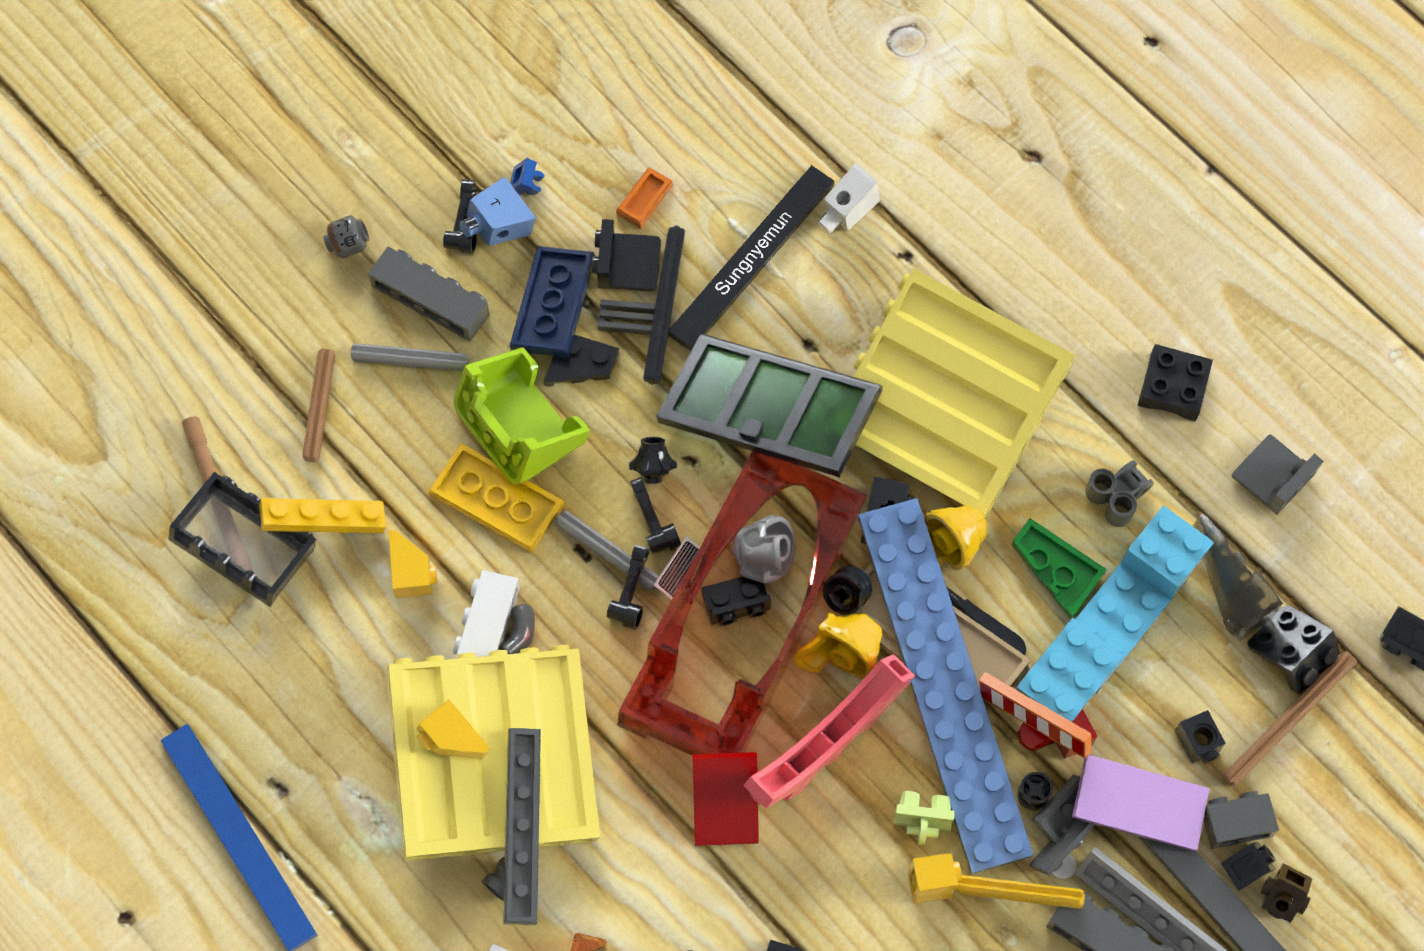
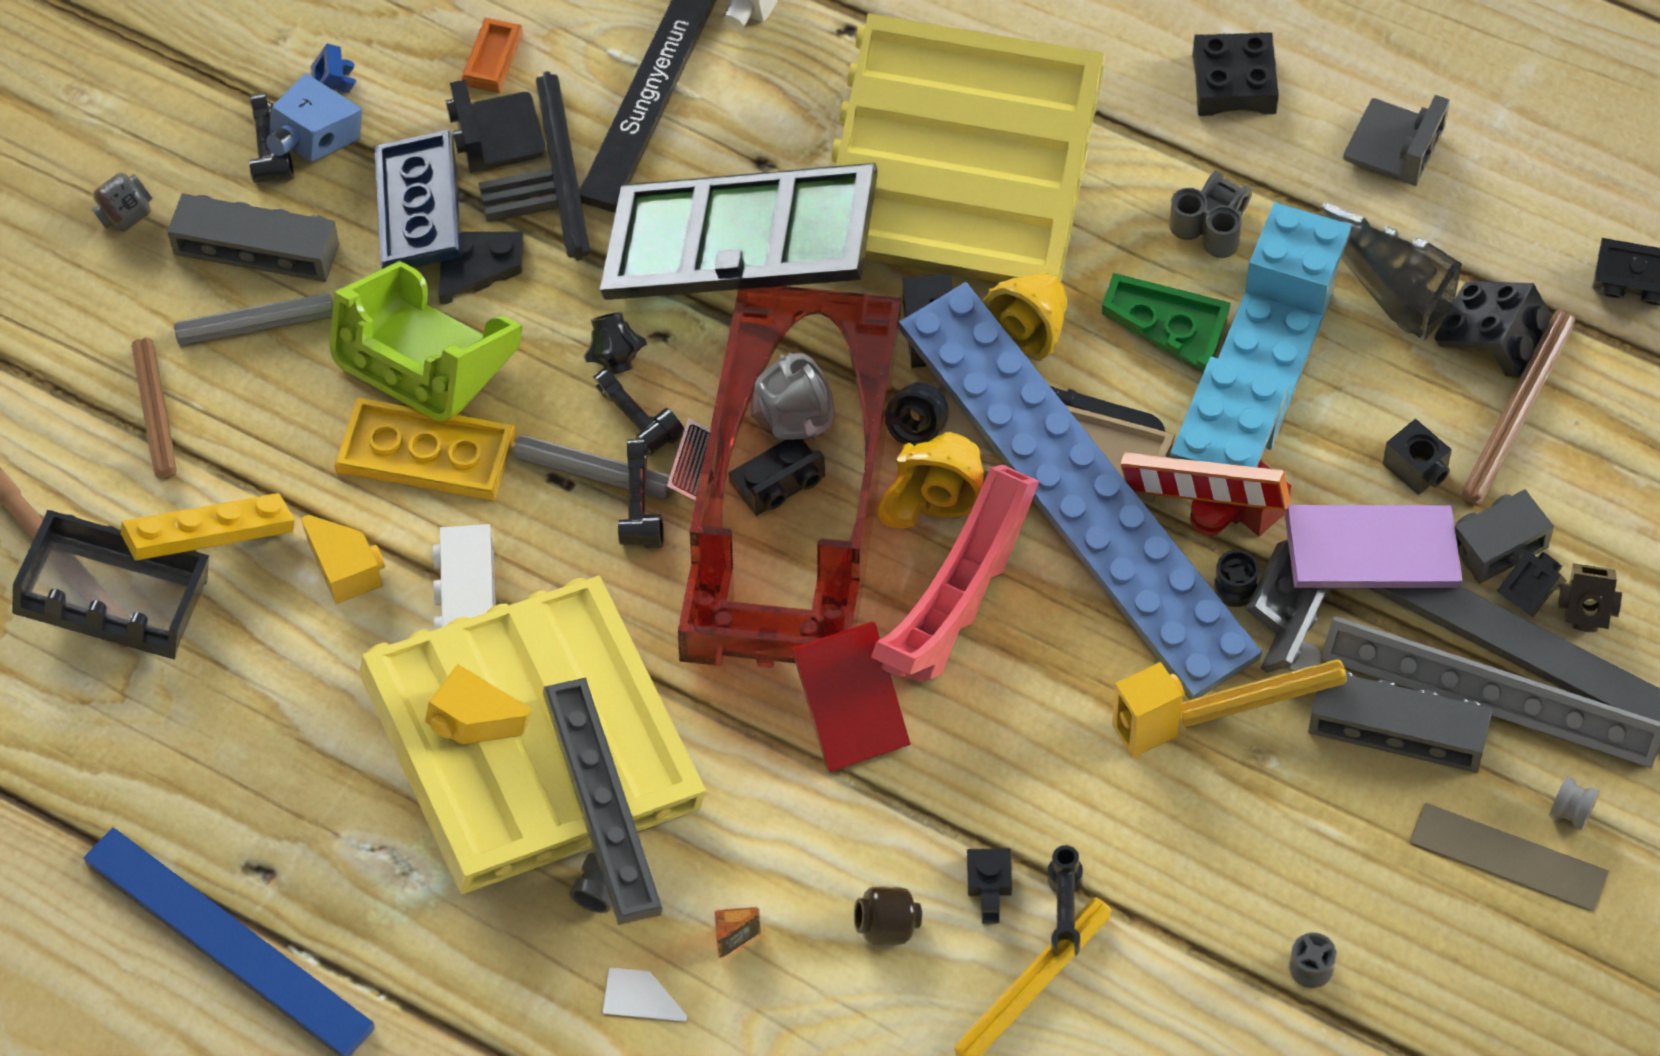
camera: 15 degrees left, 10 degrees down
(522, 629) = (513, 579): dark grey arm -> none
(922, 820) = (1108, 650): yellowish green hips -> none

